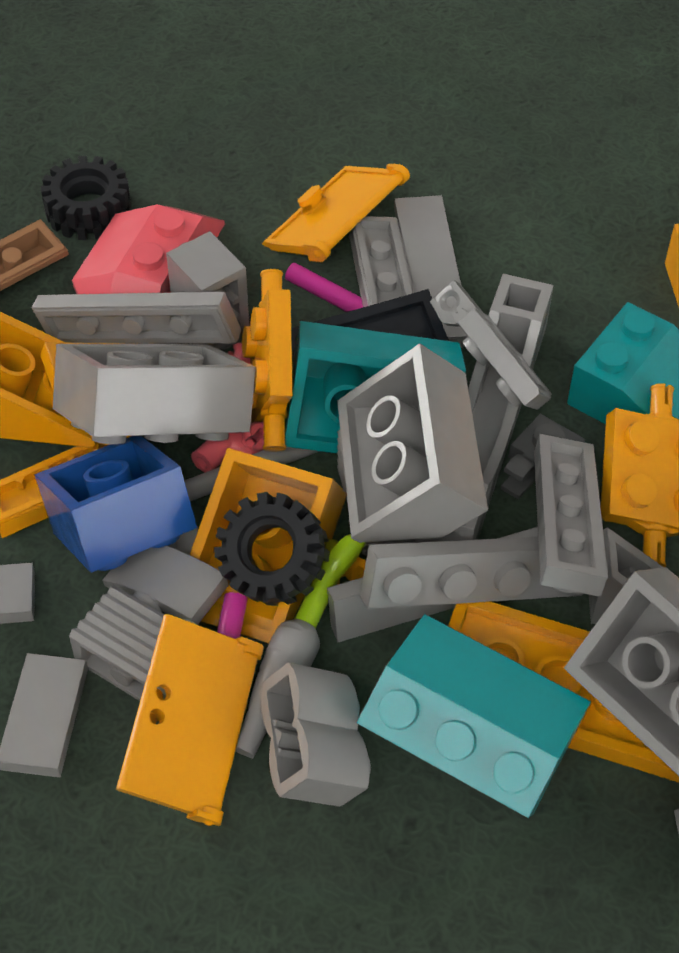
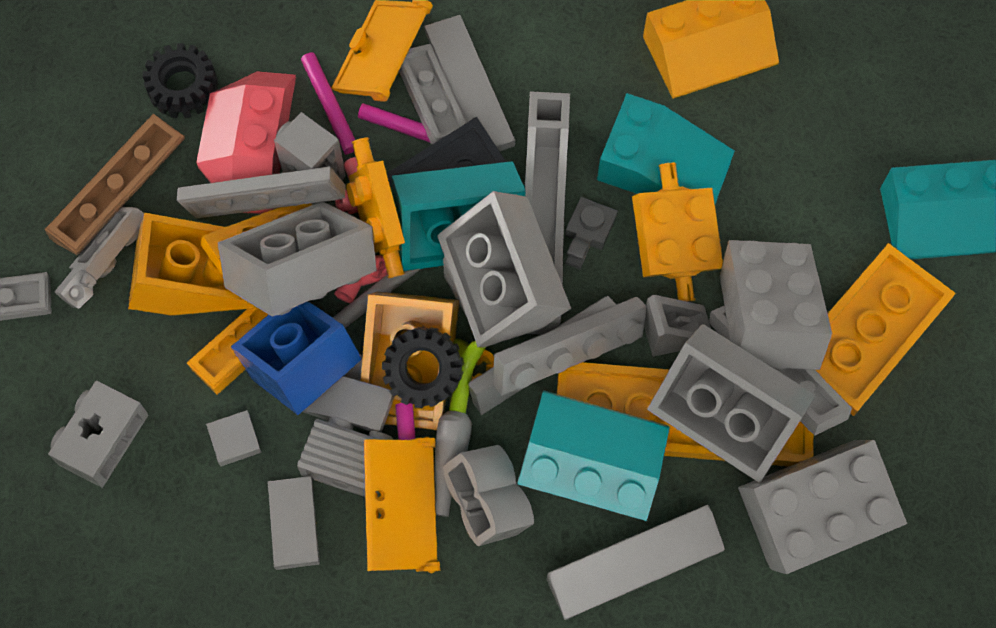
camera: 15 degrees left, 15 degrees up
(252, 245) = (328, 102): none -> dark pink bar
(489, 344) = (536, 158): light grey hinge -> none
(501, 879) = (635, 562): none -> light grey slope
(569, 517) = (624, 288): light grey plate -> none

